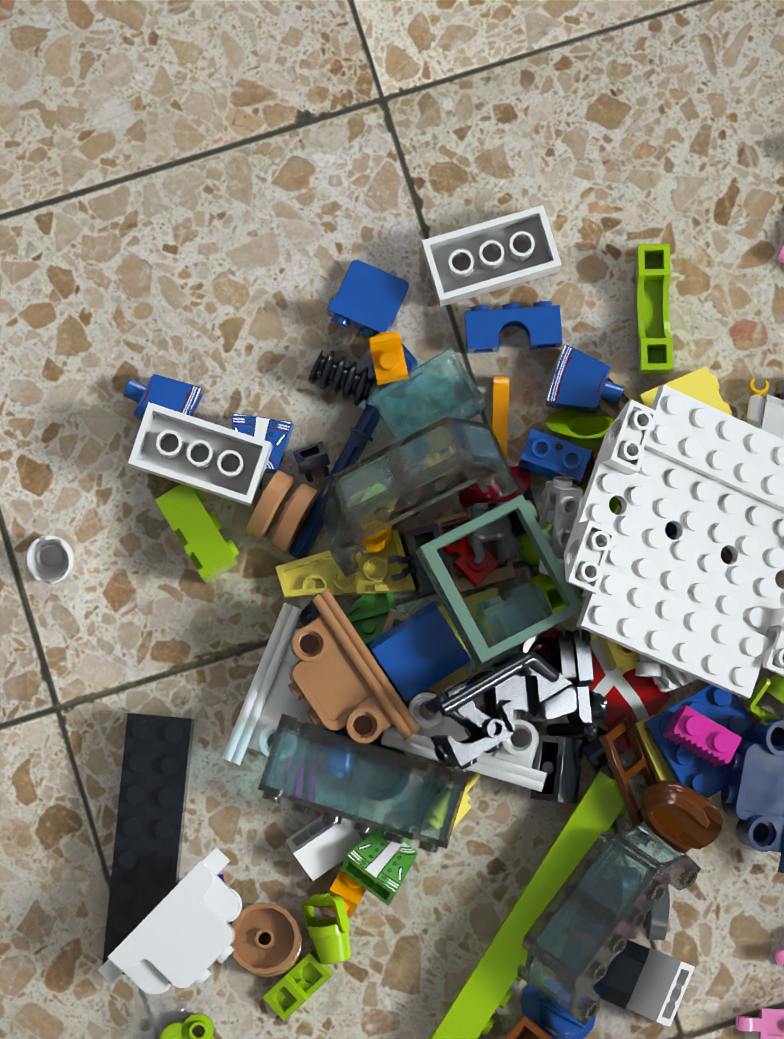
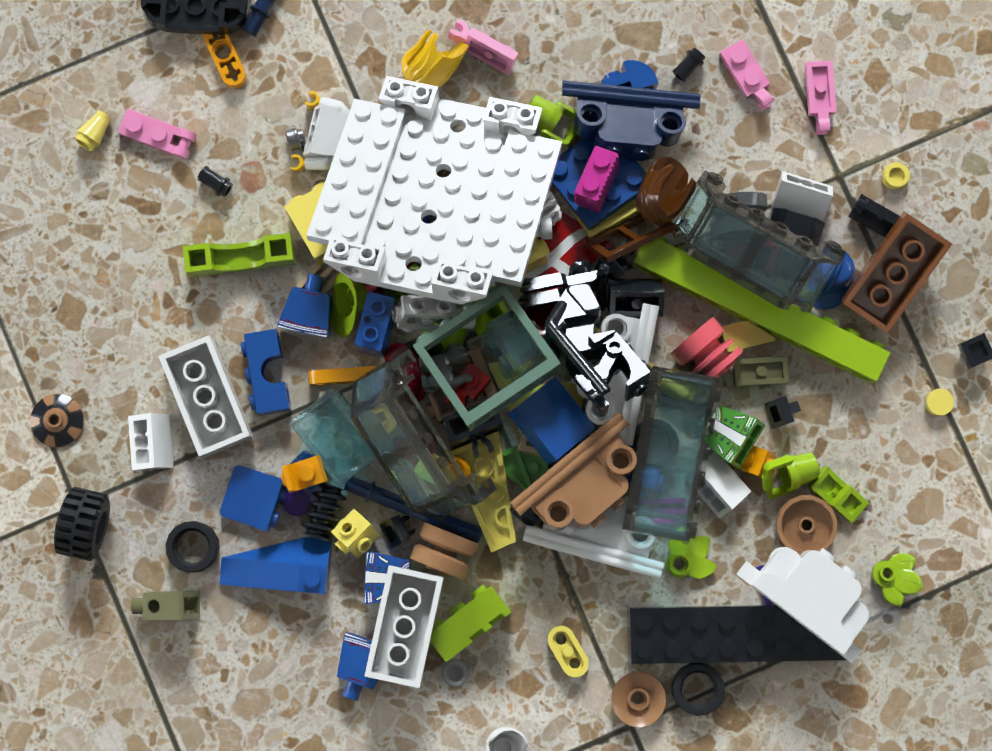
camera: 100 degrees left, 0 degrees up
(70, 713) = (642, 713): none -> medium nougat dish
(72, 773) = (713, 703): none -> black tyre
(142, 511) = (455, 672): none -> light grey tile
(151, 642) = (567, 651): none -> light yellow plate
(243, 804) = (693, 557): none -> lime plate
(255, 191) = (168, 605): none -> olive torso
(285, 330) = (285, 566): none -> blue wedge
(311, 203) = (177, 532): none -> black tyre
(313, 410) = (354, 534): none -> light yellow brick
(357, 349) = (296, 503): none -> dark purple tile
(359, 102) = (81, 523): none -> black tyre
(402, 929) = (781, 411): none -> black tile
(446, 188) = (150, 441): none -> white brick
(454, 910) = (761, 371): none -> olive plate
(482, 846) = (707, 351): none -> coral wheel
(483, 100) = (69, 425): none -> dish
(499, 895) = (745, 335): none -> light yellow tile
(745, 290) = (215, 181): none -> black pin

